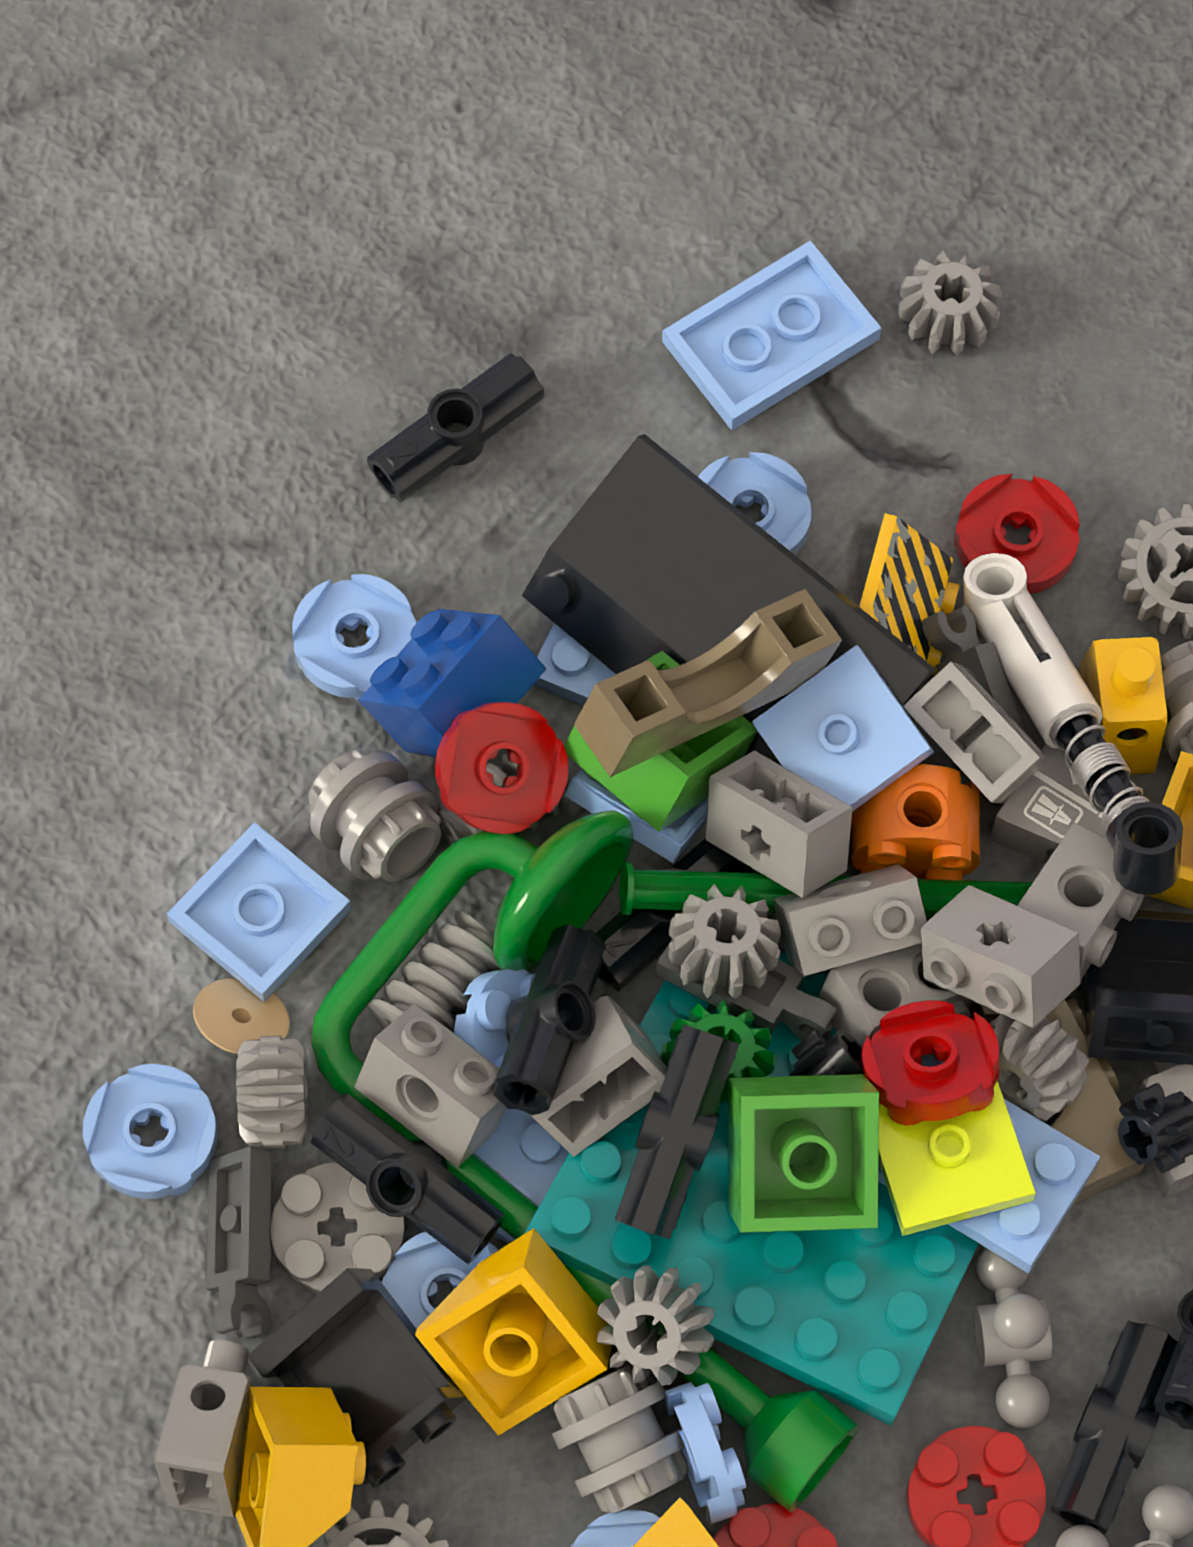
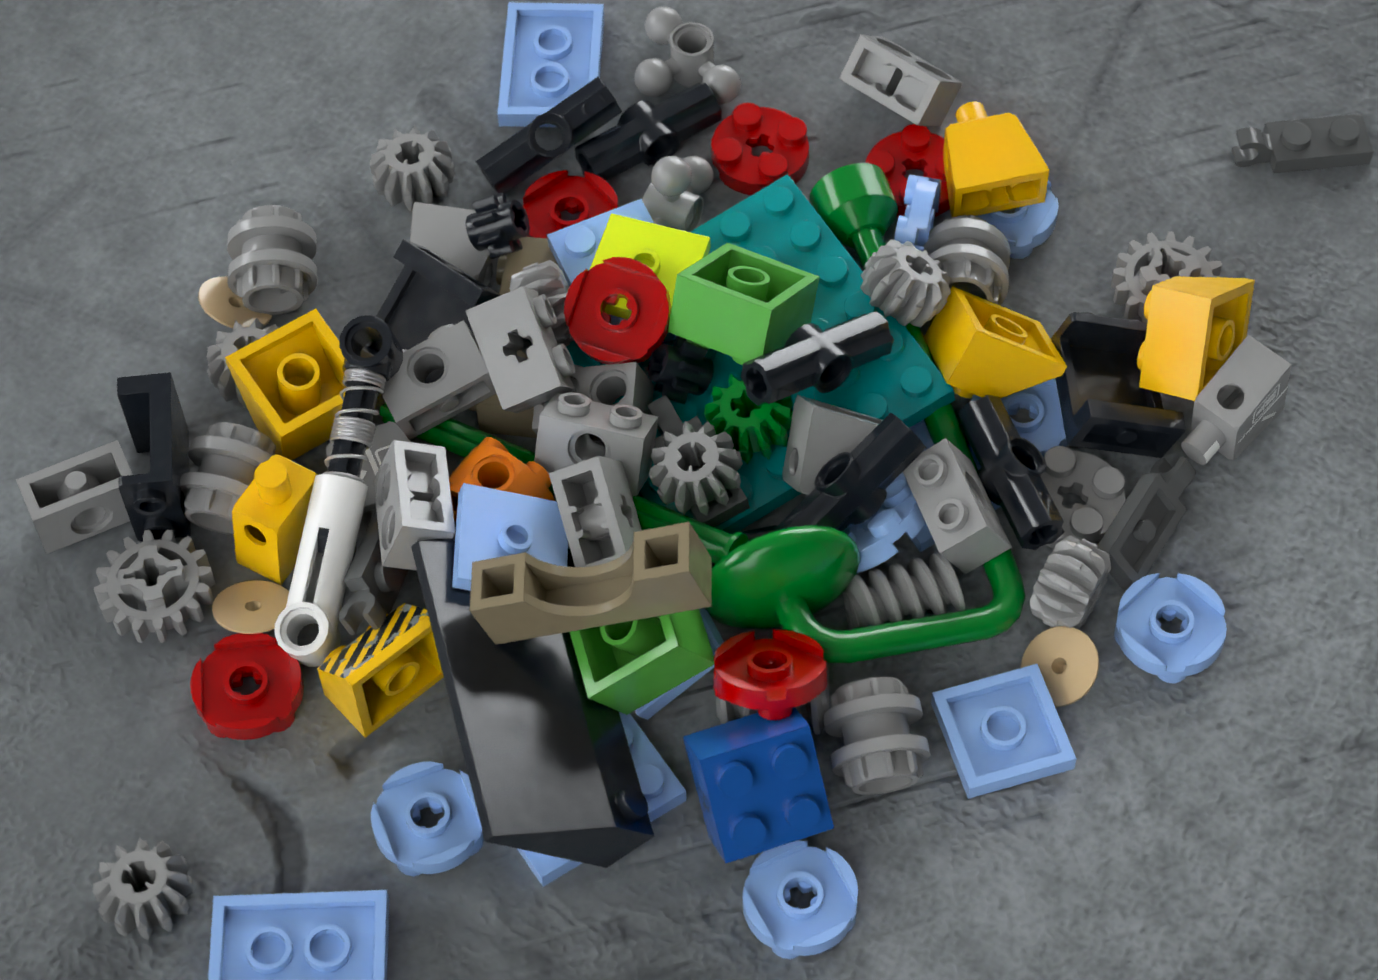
camera: 145 degrees left, 10 degrees down
(1081, 607) = (250, 606): none -> tan piece
(1155, 1241) = (560, 192): none -> red plate

